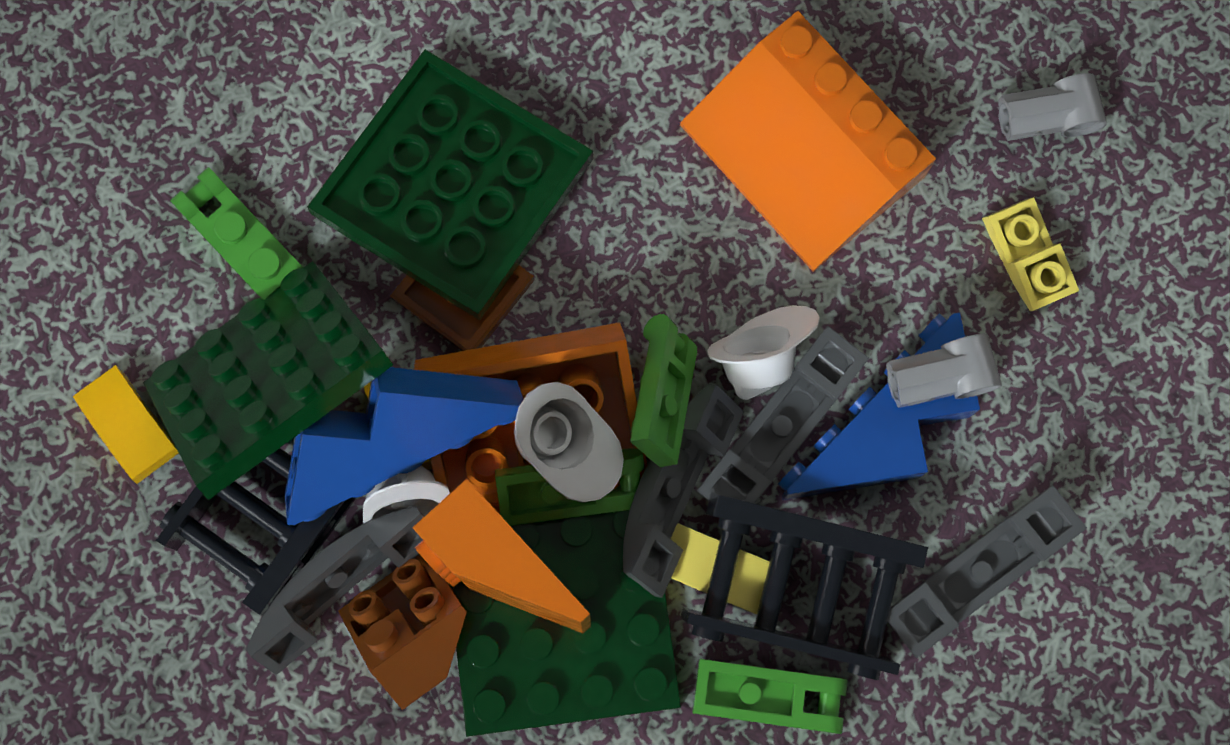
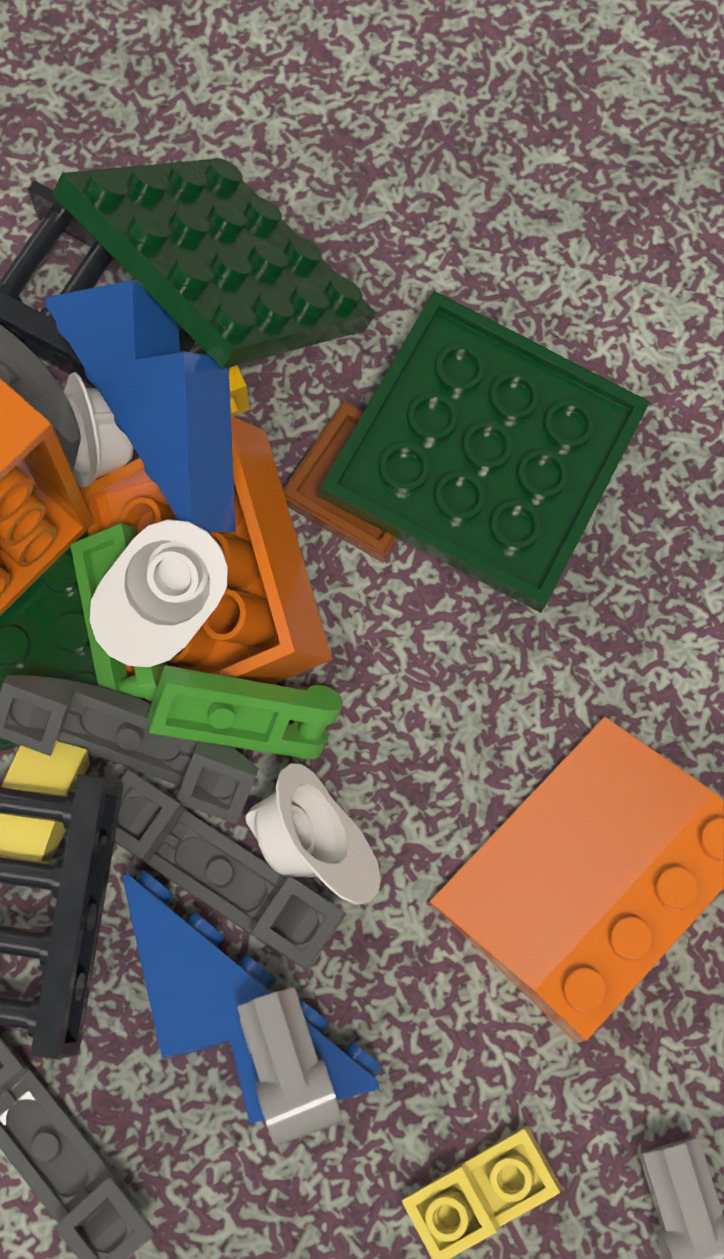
camera: 85 degrees right, 5 degrees down
(126, 424) = (179, 133): yellow slope -> none
(236, 234) = (401, 230): bright green plate -> none

